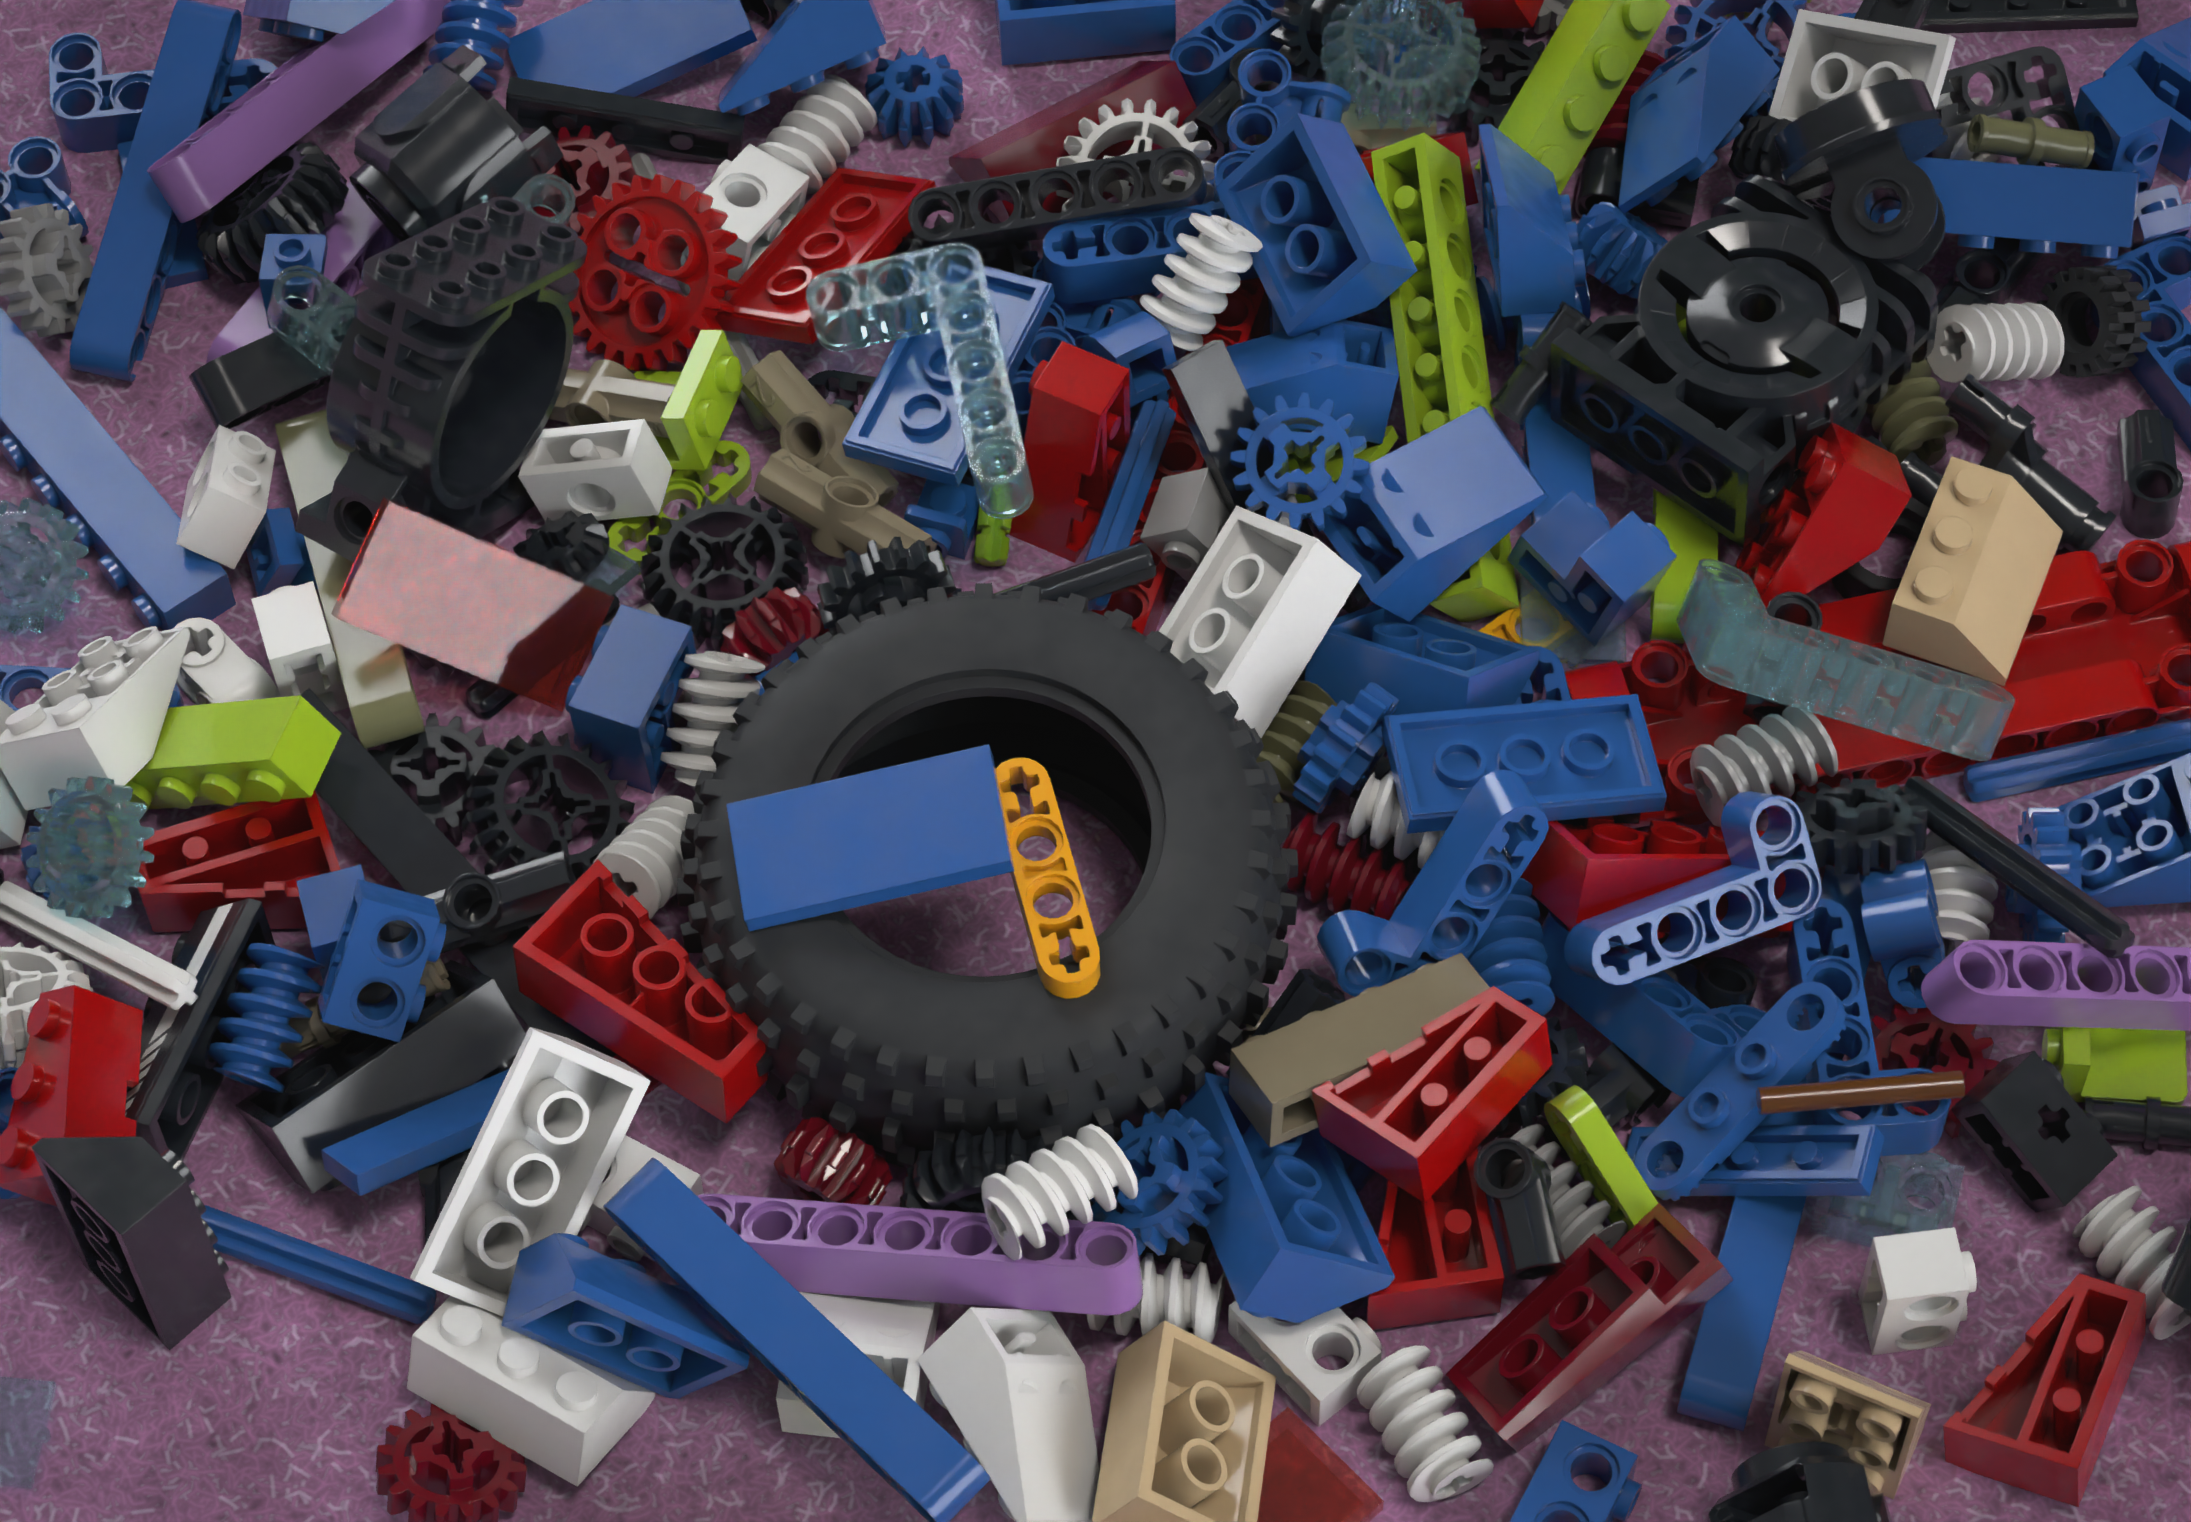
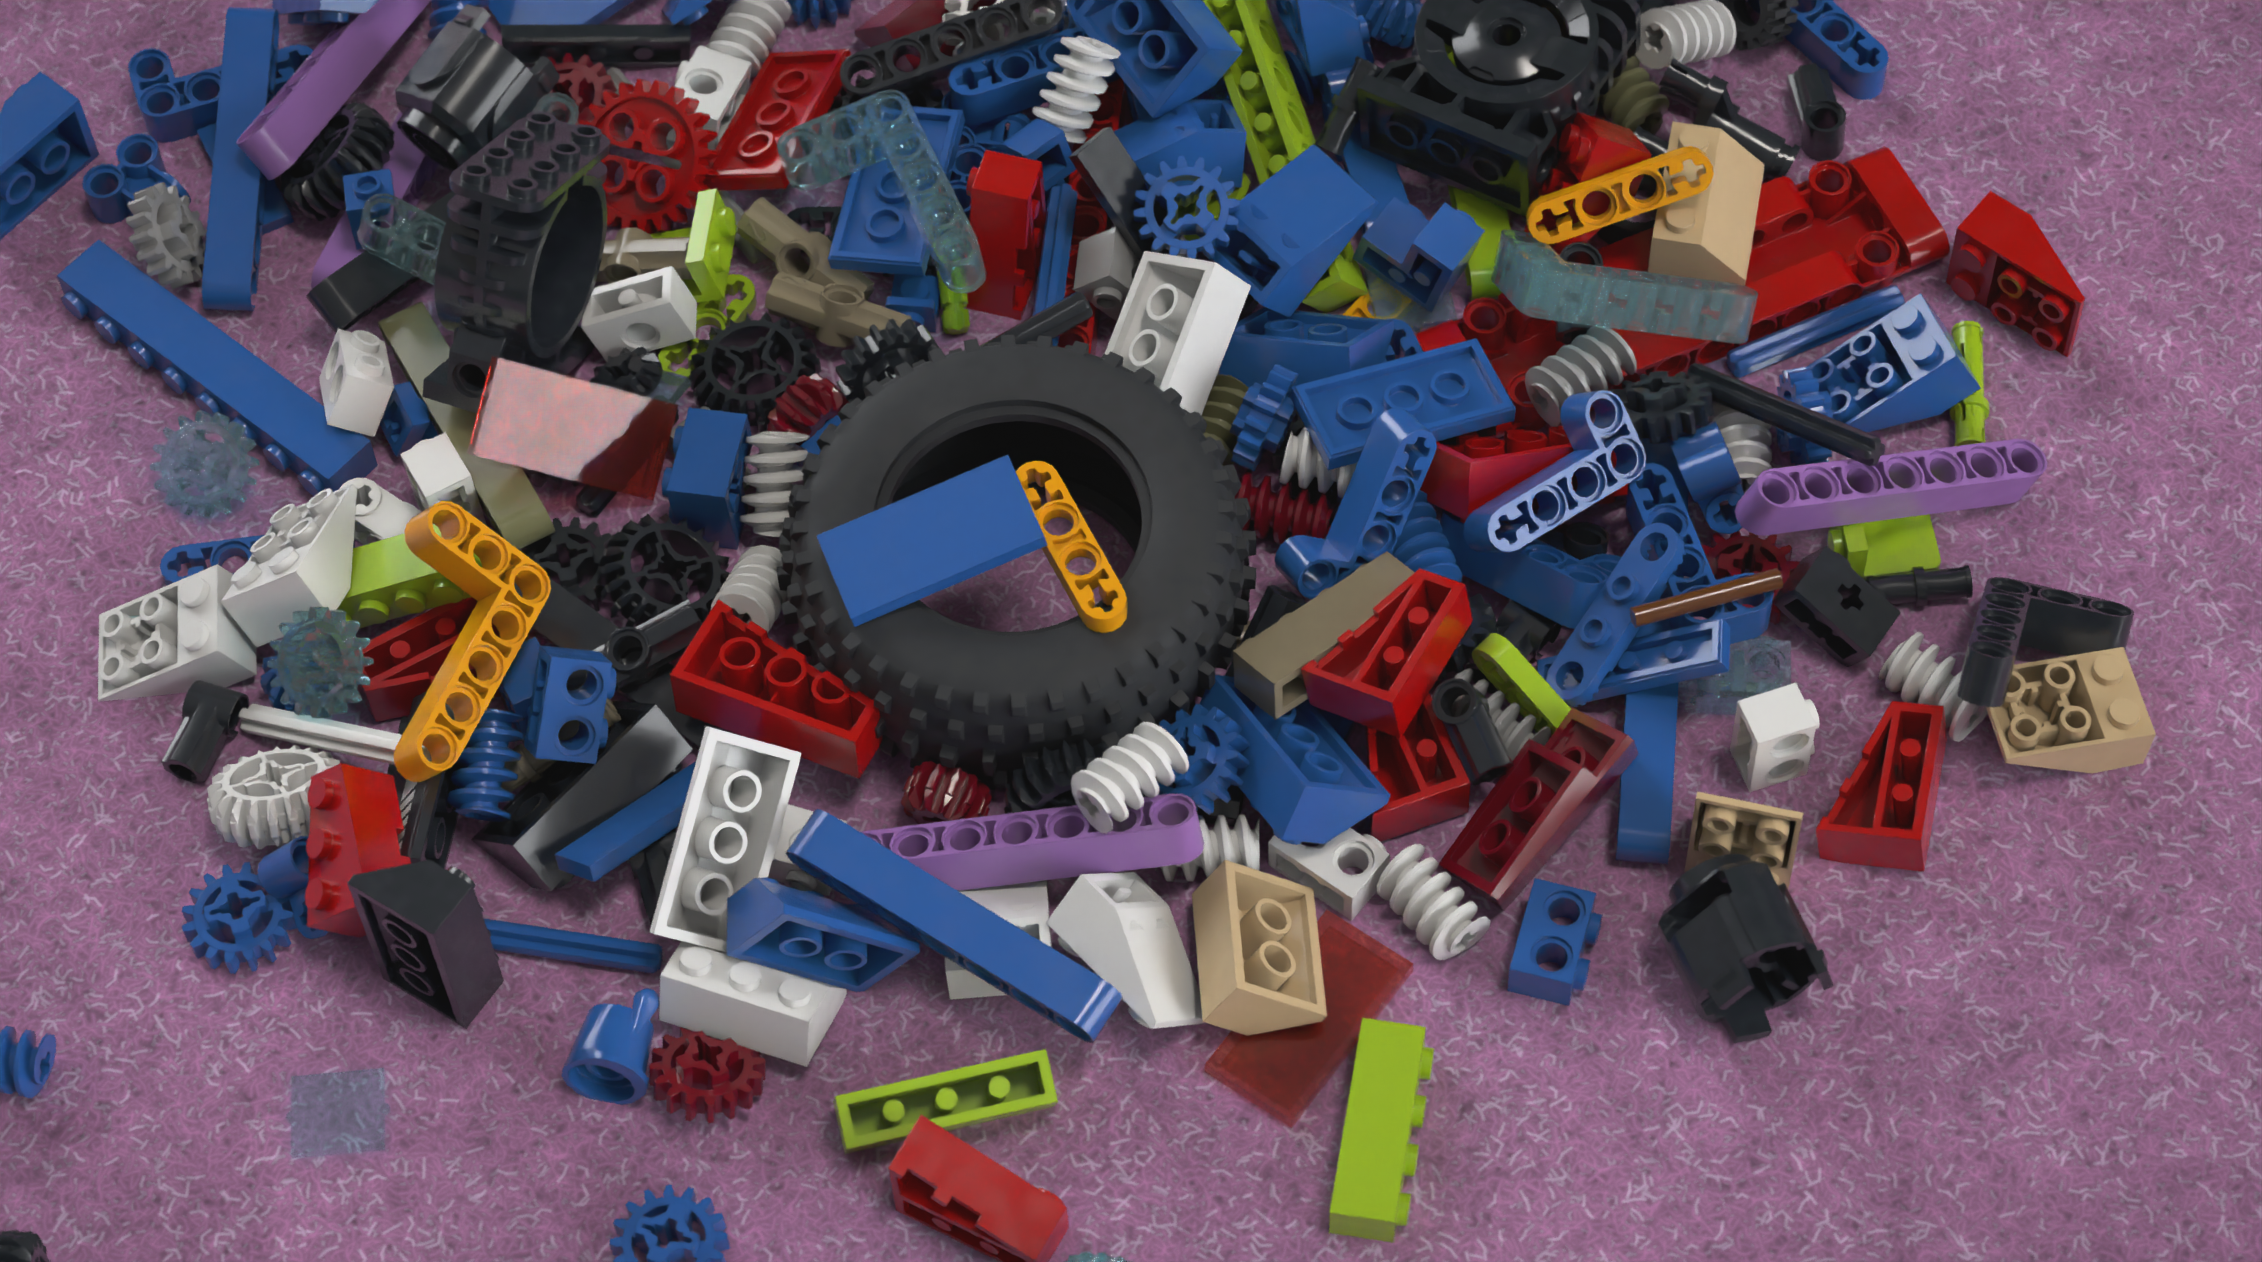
camera: 10 degrees left, 0 degrees up
(280, 860) = (477, 643): none -> light orange beam
(340, 1418) = (613, 1051): none -> blue hat
(1857, 531) = (1616, 186): none -> light orange beam

